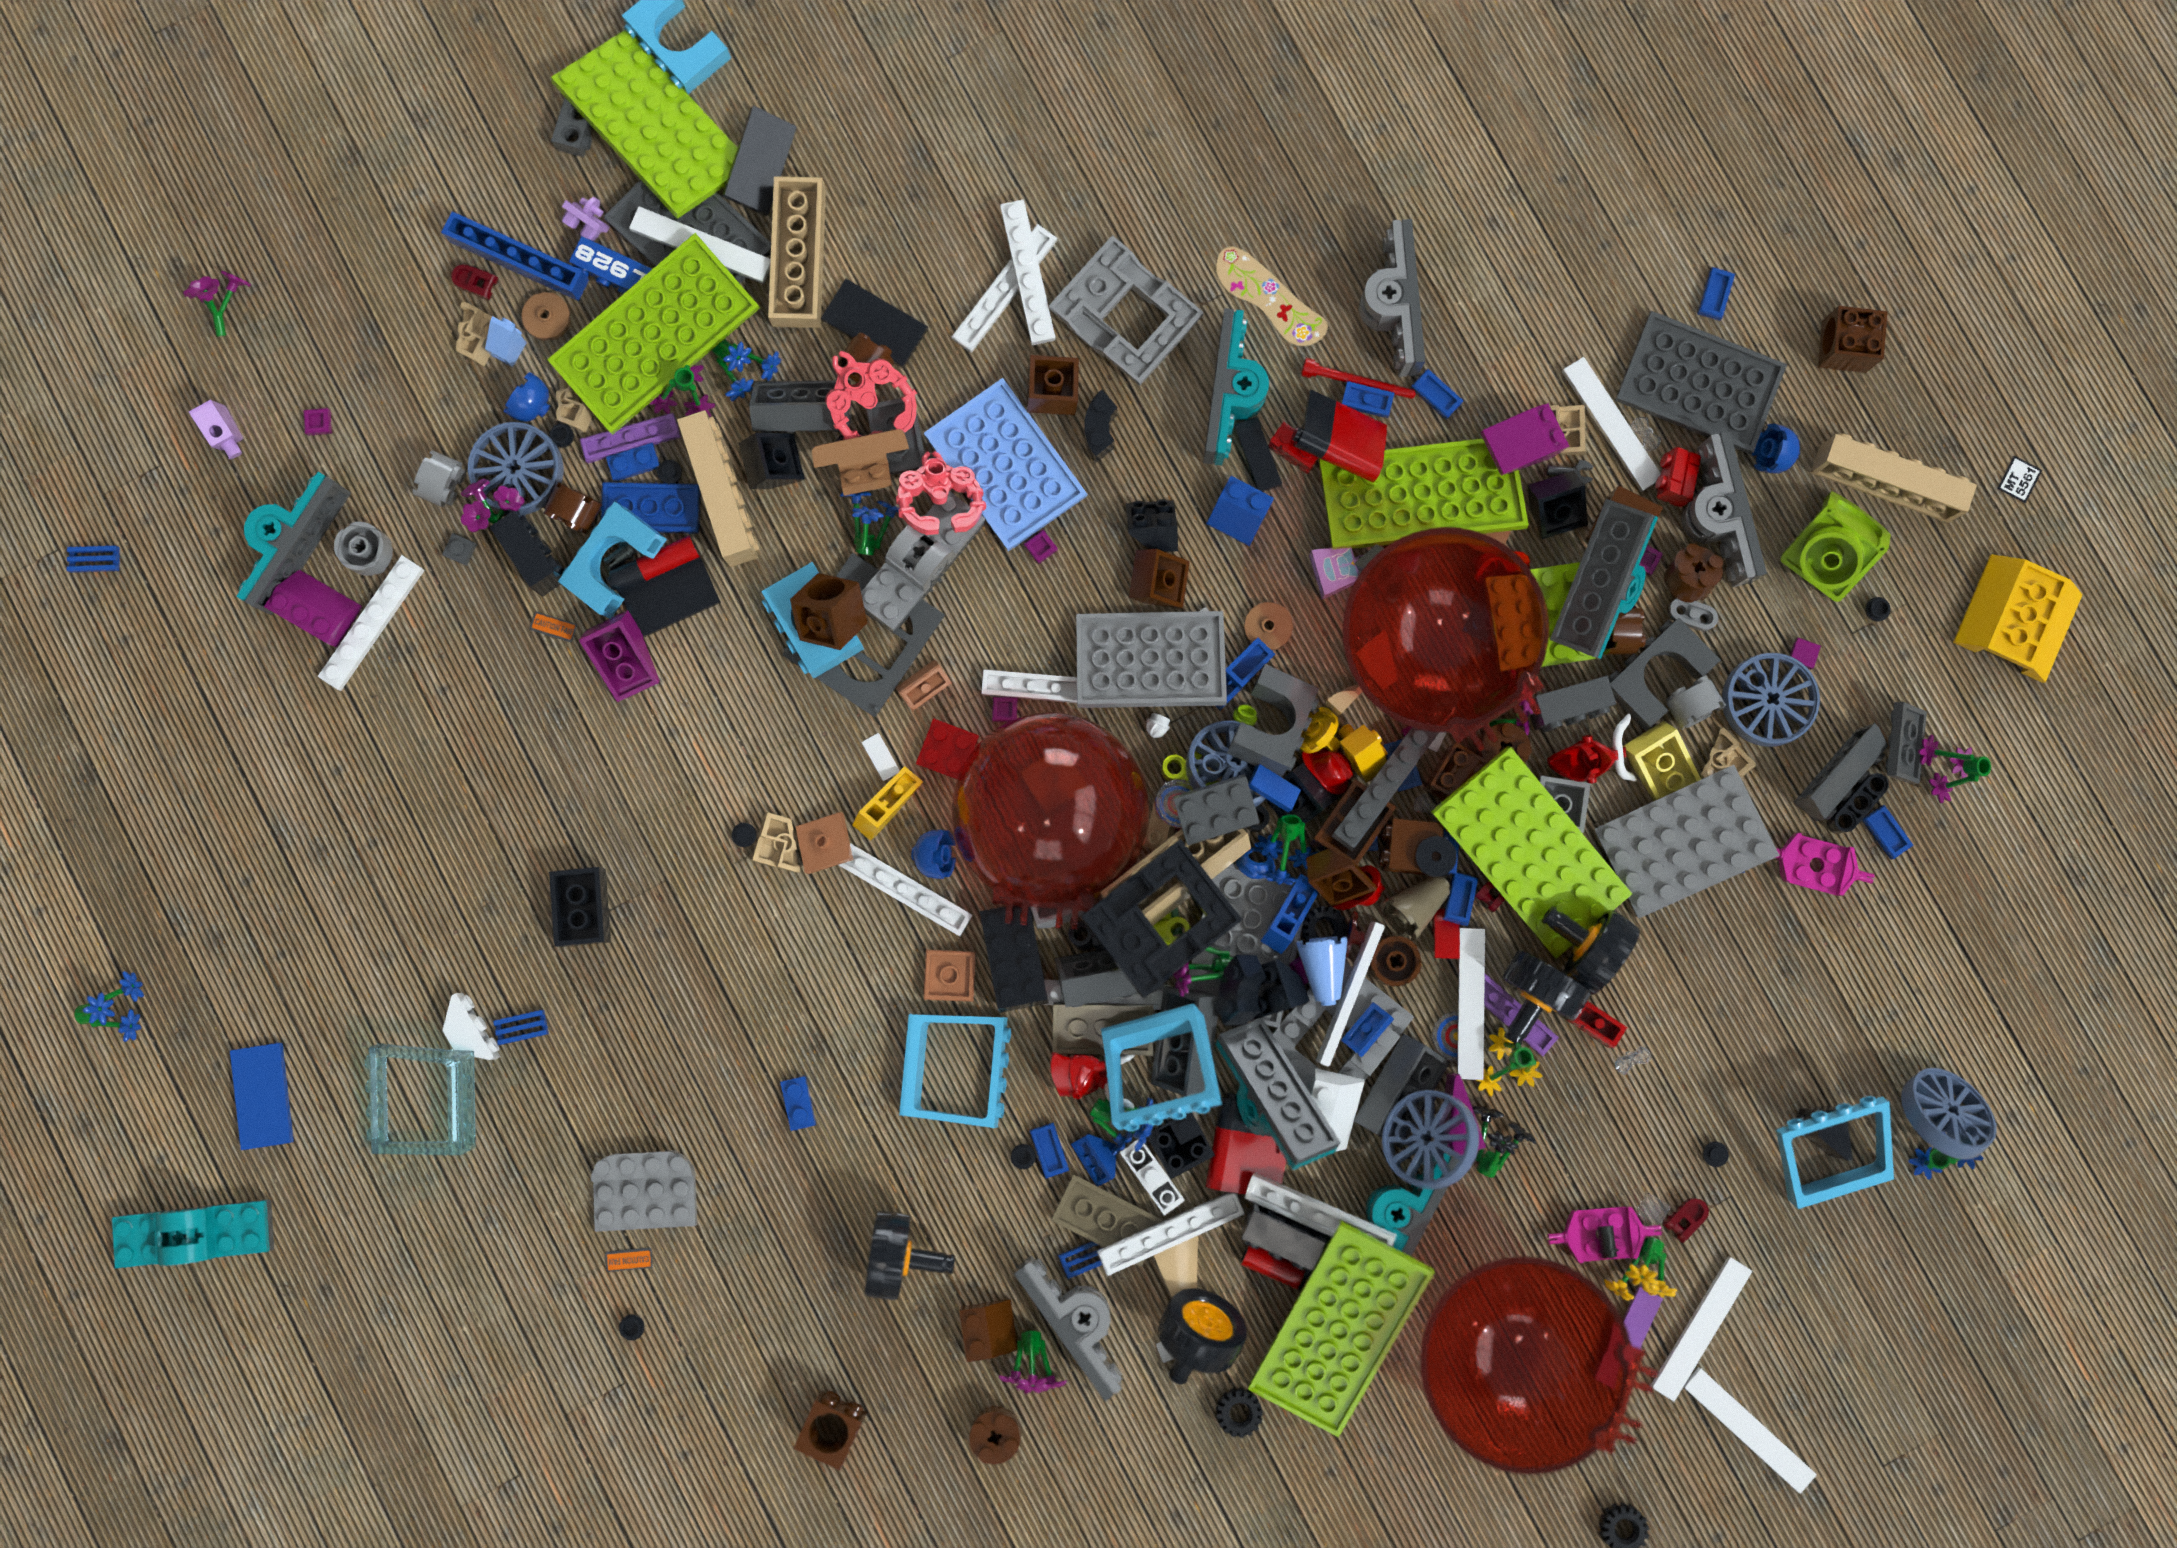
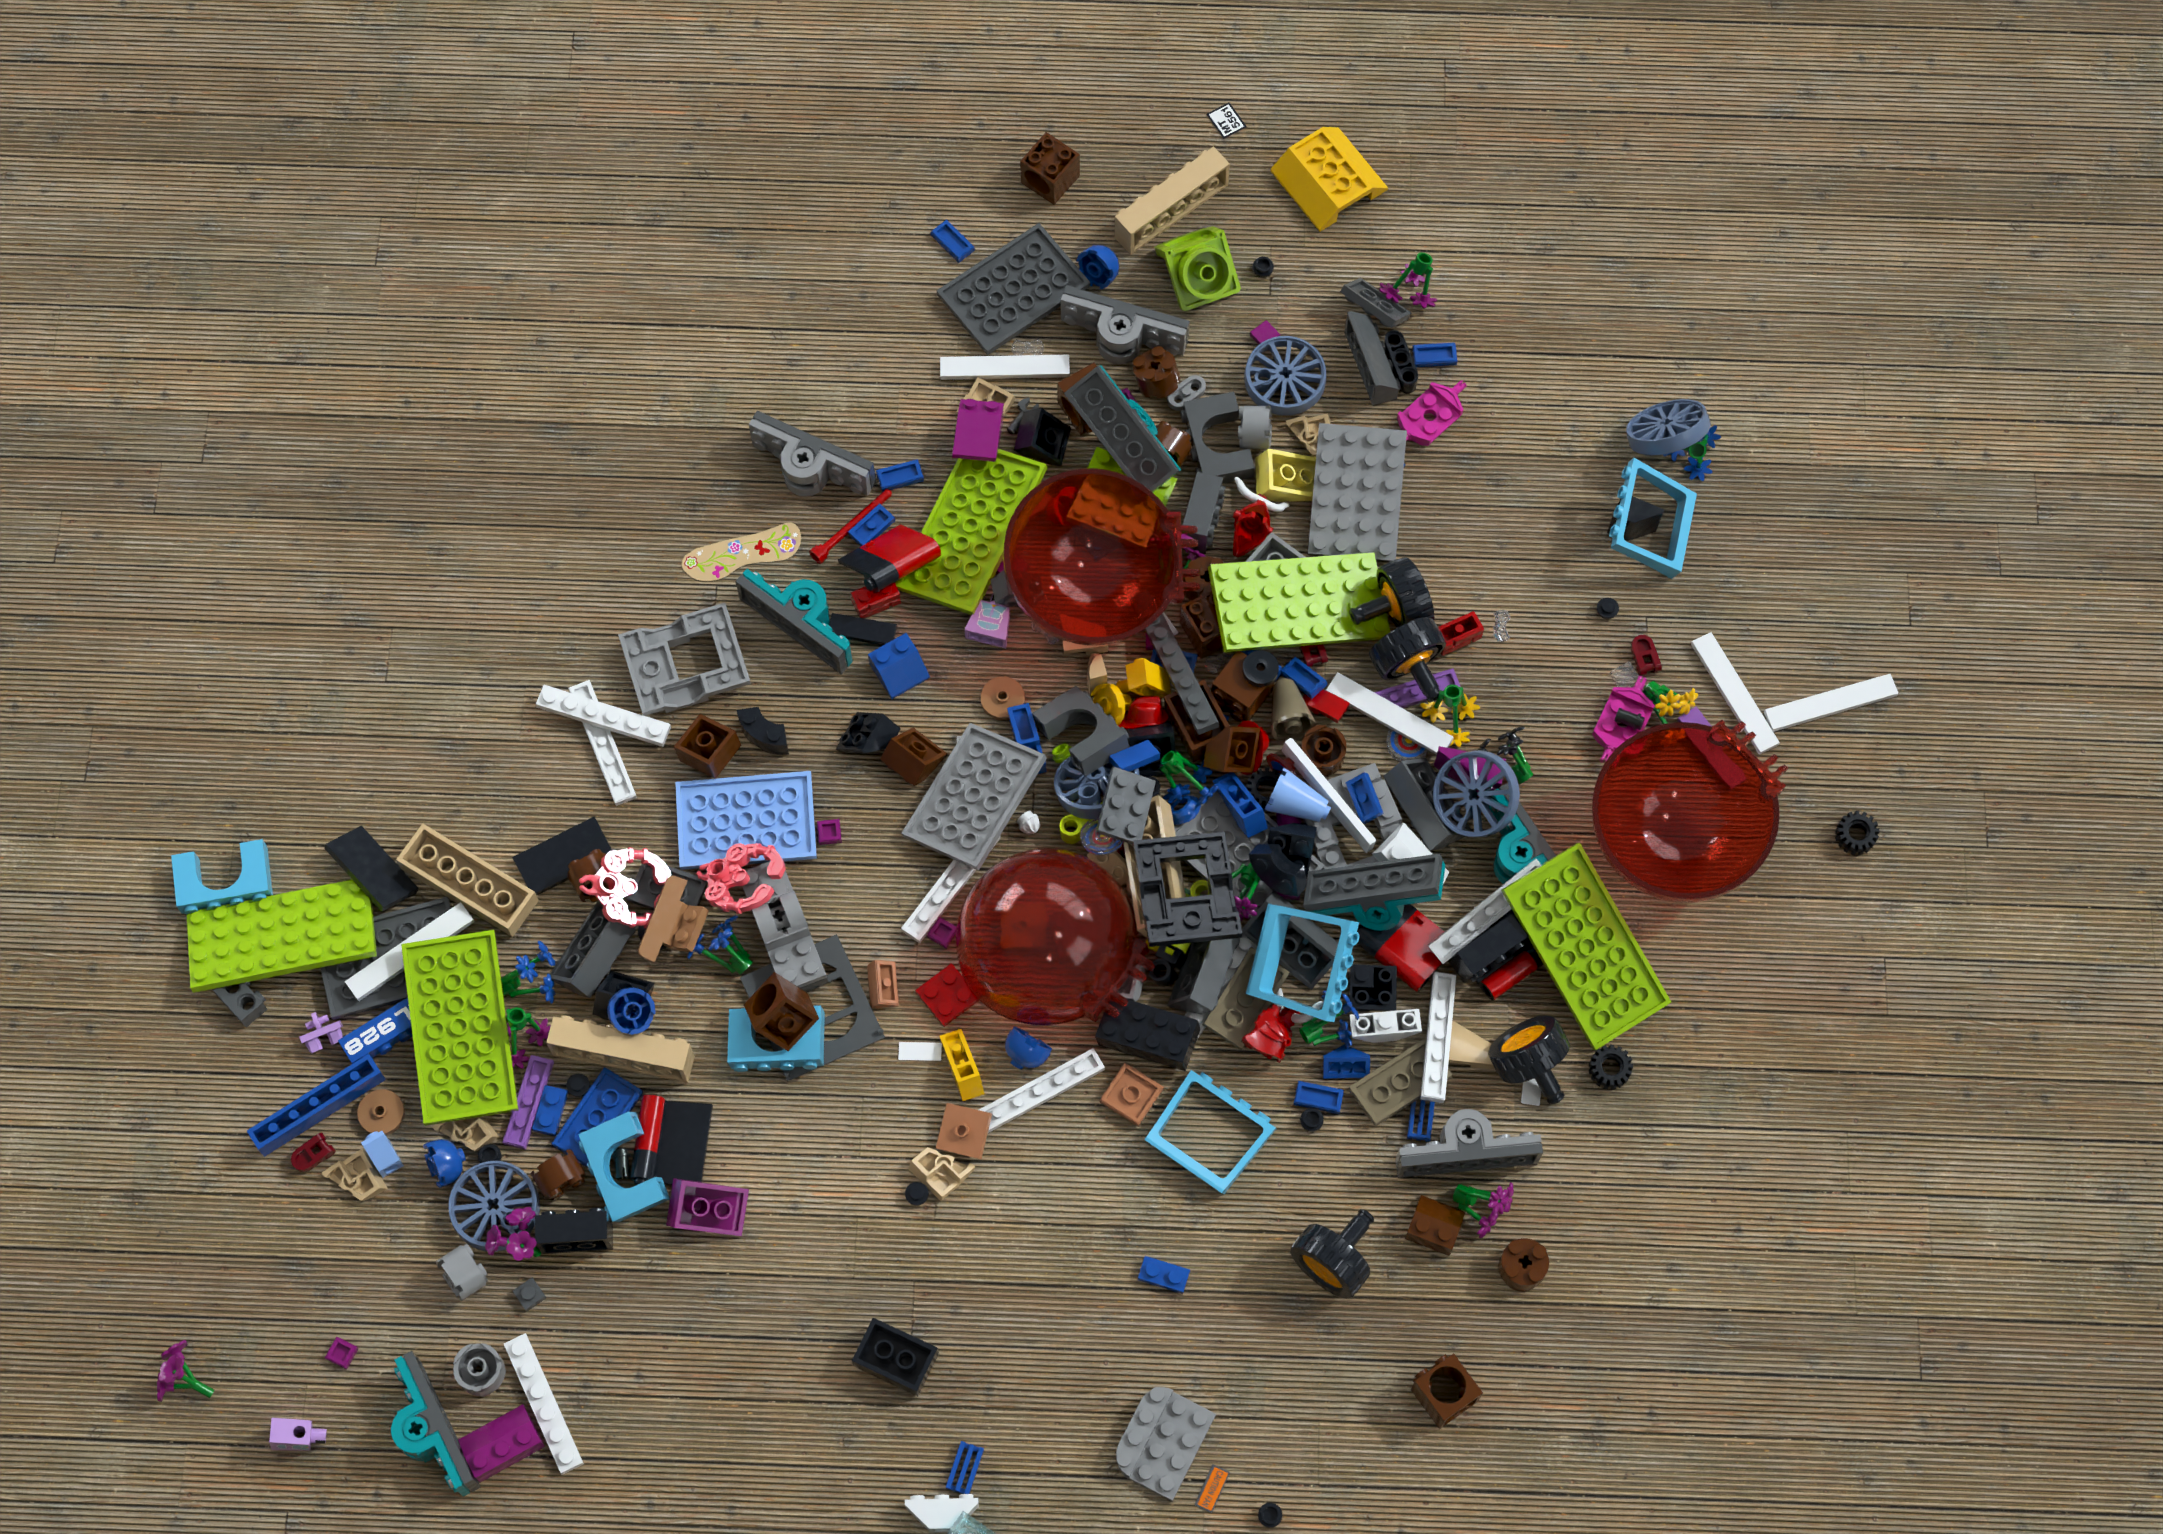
camera: 60 degrees left, 15 degrees down
(553, 627) = (644, 1254): sticker -> none
(747, 475) = (636, 1016): none -> blue cylinder
(1678, 476) = (1075, 343): red brick -> none

